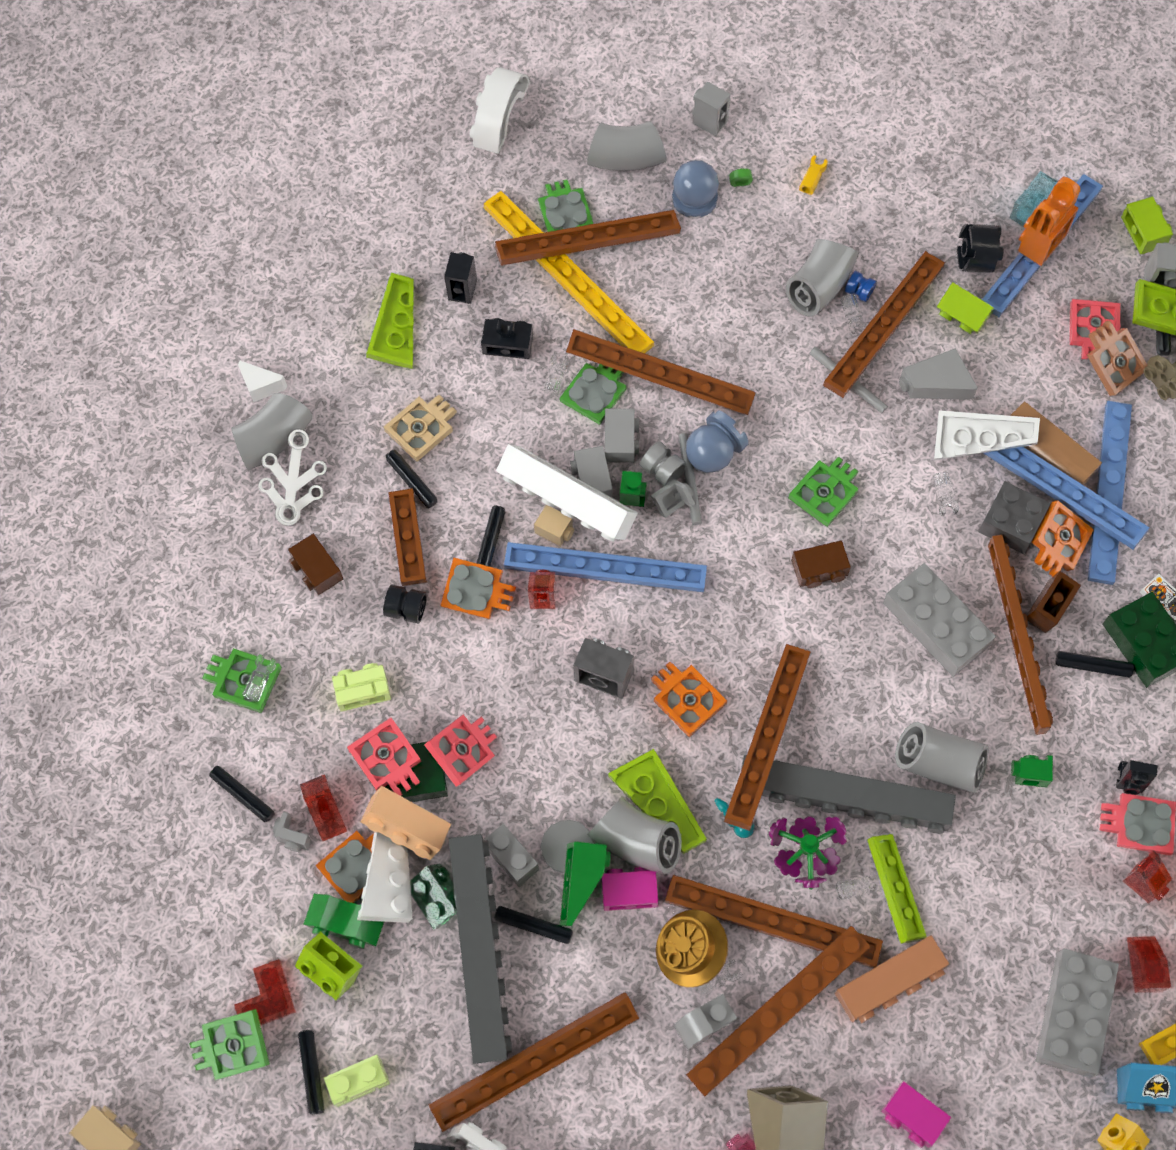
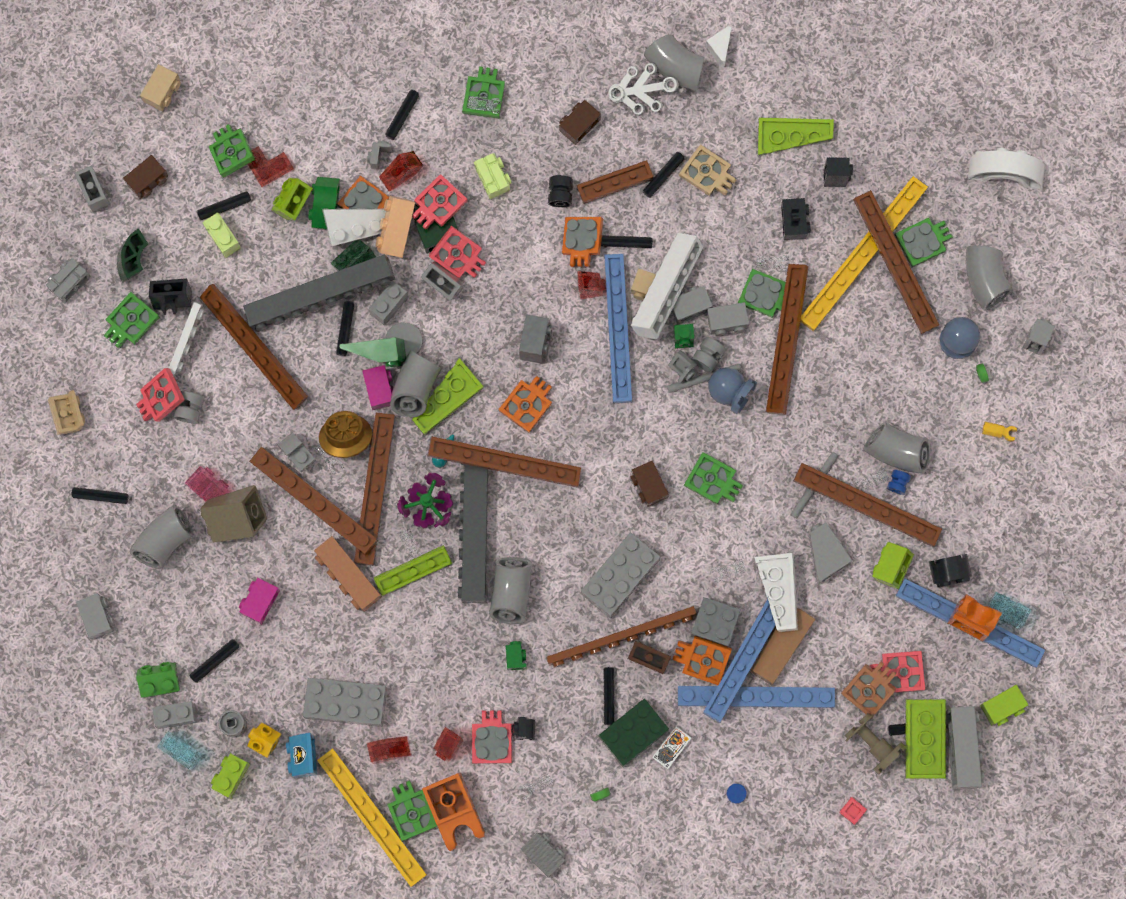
camera: 80 degrees right, 10 degrees up
(496, 774) = (443, 280): none -> light grey brick

